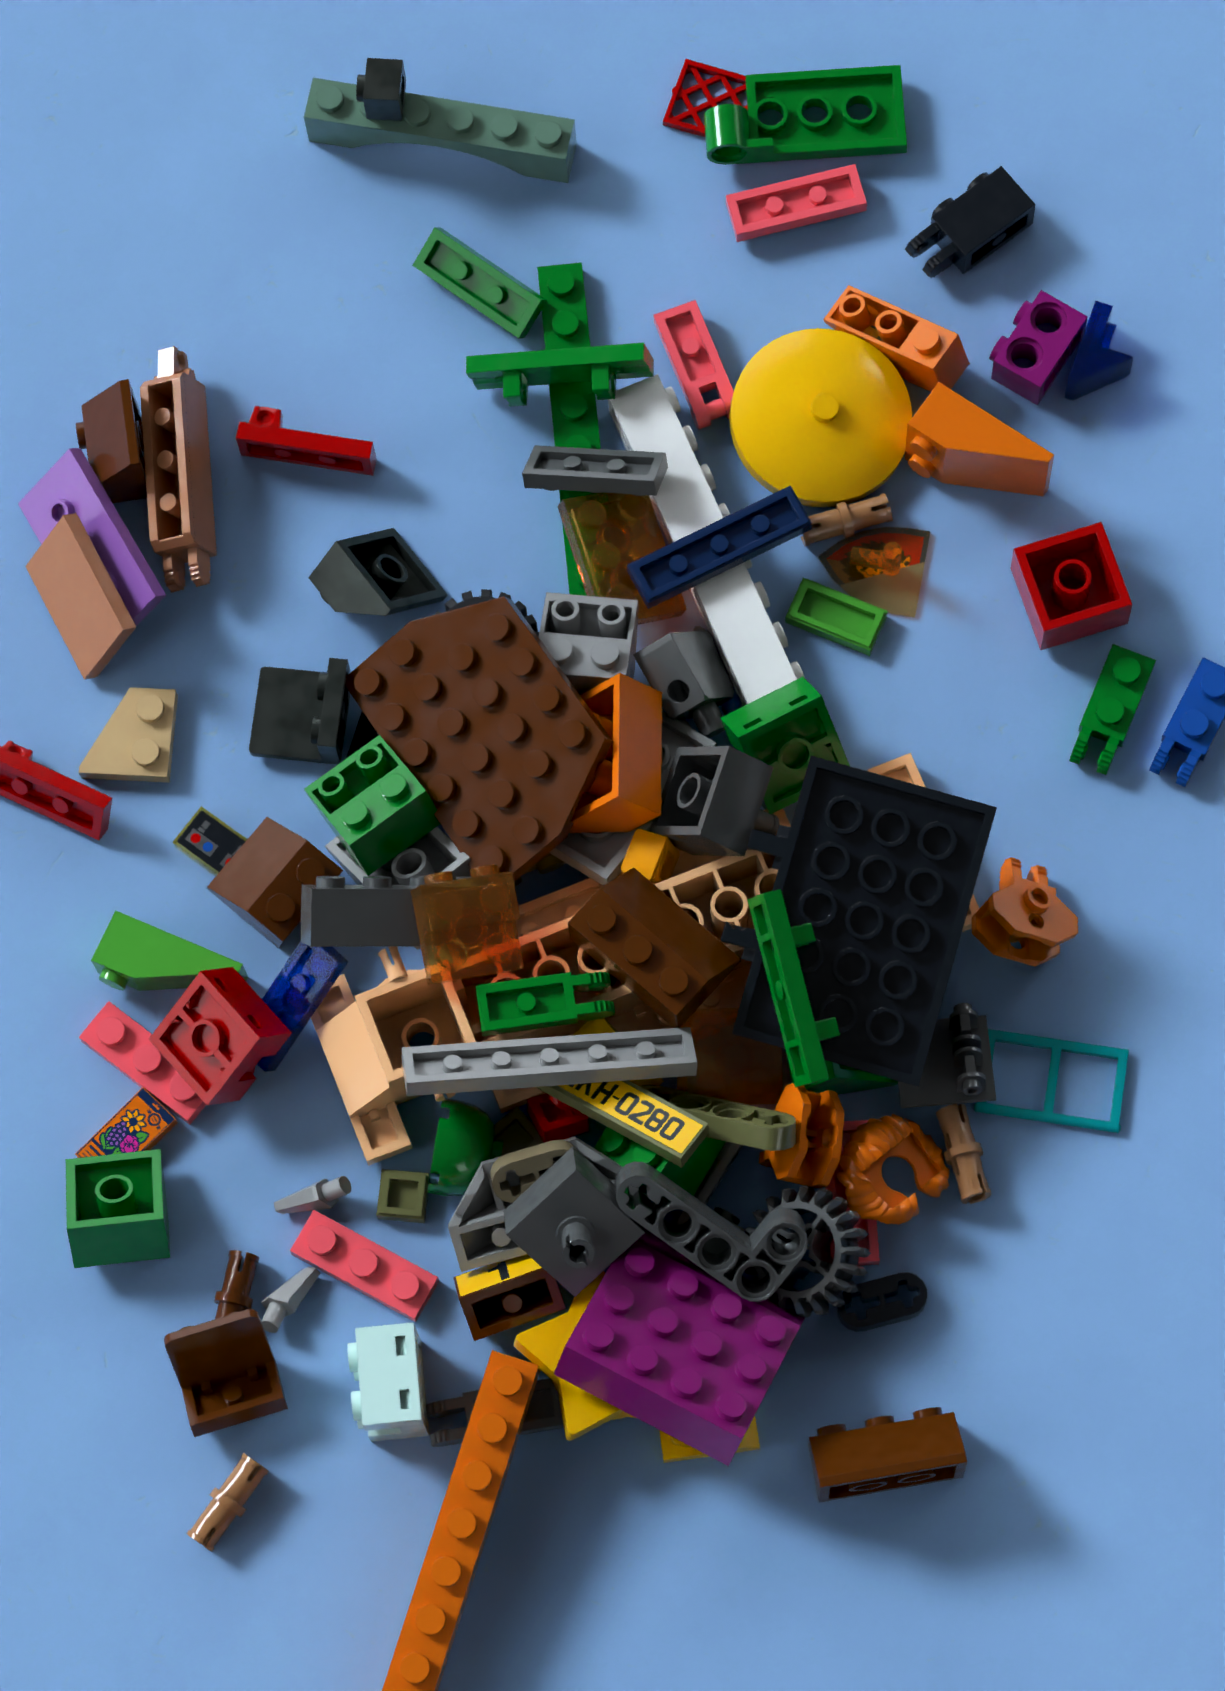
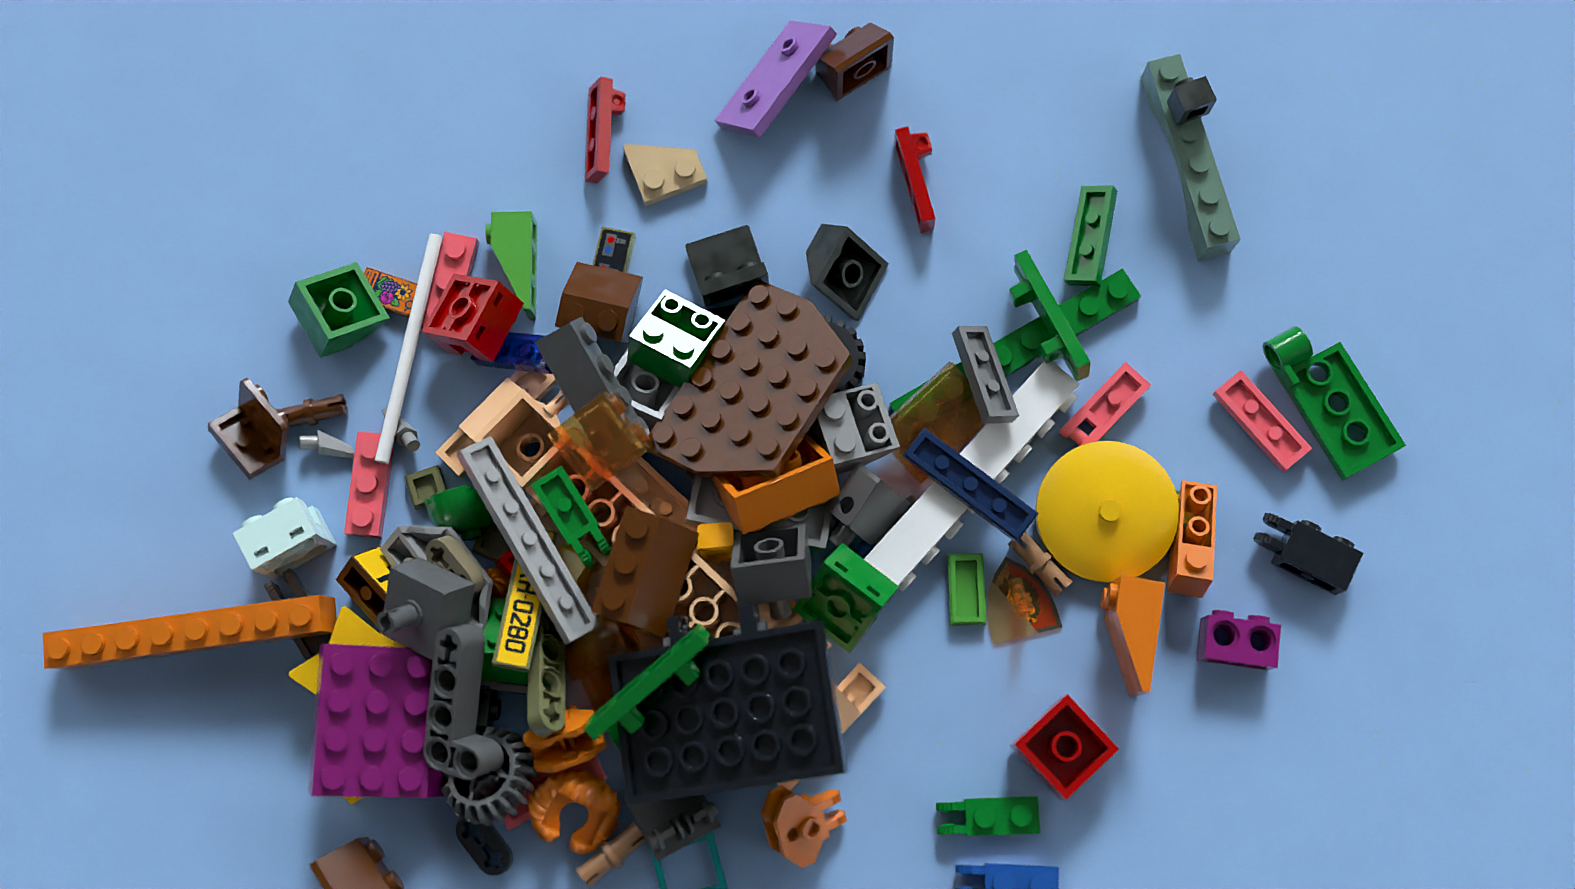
camera: 65 degrees right, 5 degrees up
(80, 596) = (738, 86): nougat tile -> none
(178, 470) = (856, 105): nougat hinge -> none
(215, 1138) = (408, 349): none -> white piece
(227, 1502) = (175, 471): medium nougat pin -> none
(679, 93) = (1304, 303): red window -> none
(1095, 361) = (1244, 687): clear blue slope -> none

